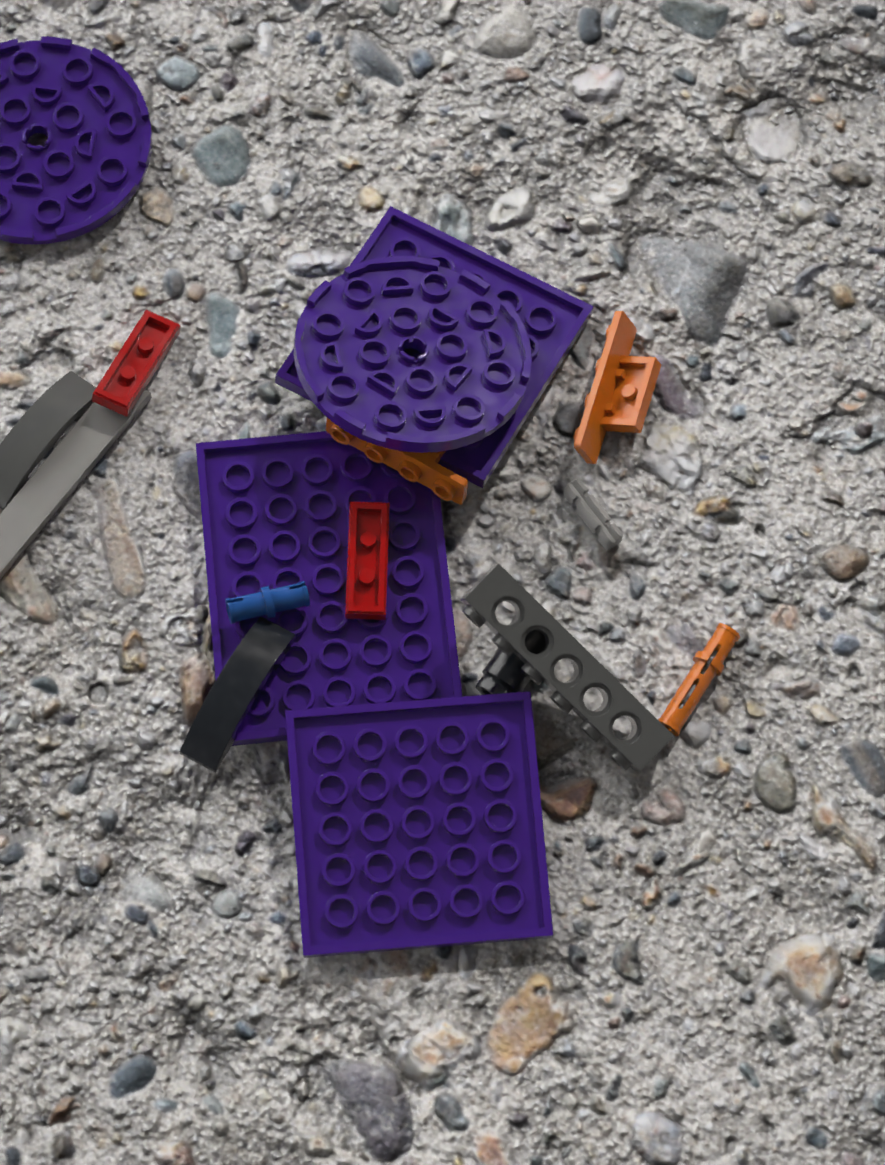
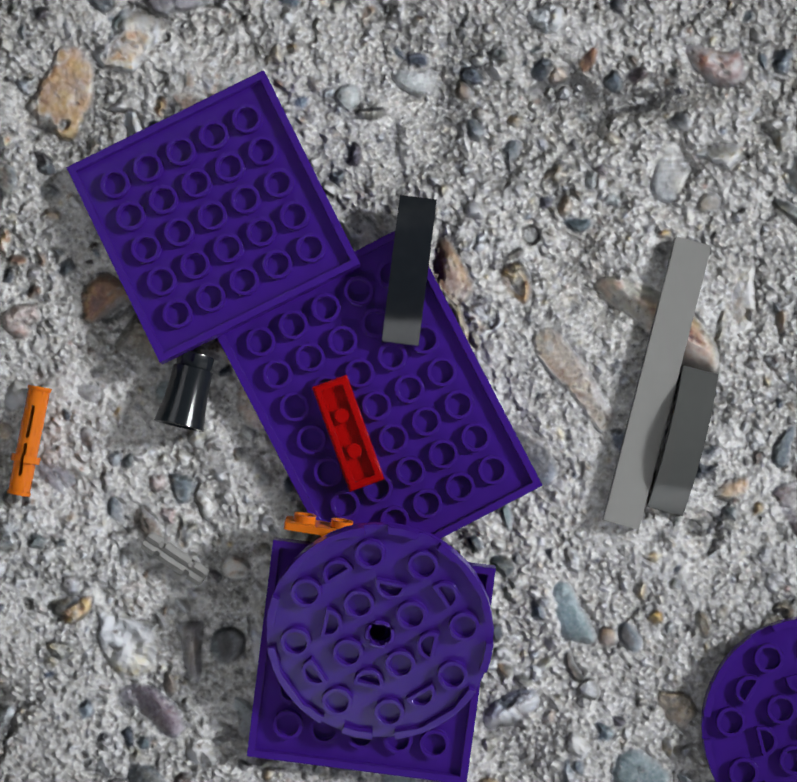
camera: 160 degrees right, 20 degrees up
(136, 363) = (627, 542): red tile -> none
(267, 602) = (416, 358): blue pin -> none
(619, 390) = (192, 684): orange bracket -> none
(647, 732) = (216, 430): dark grey brick -> none

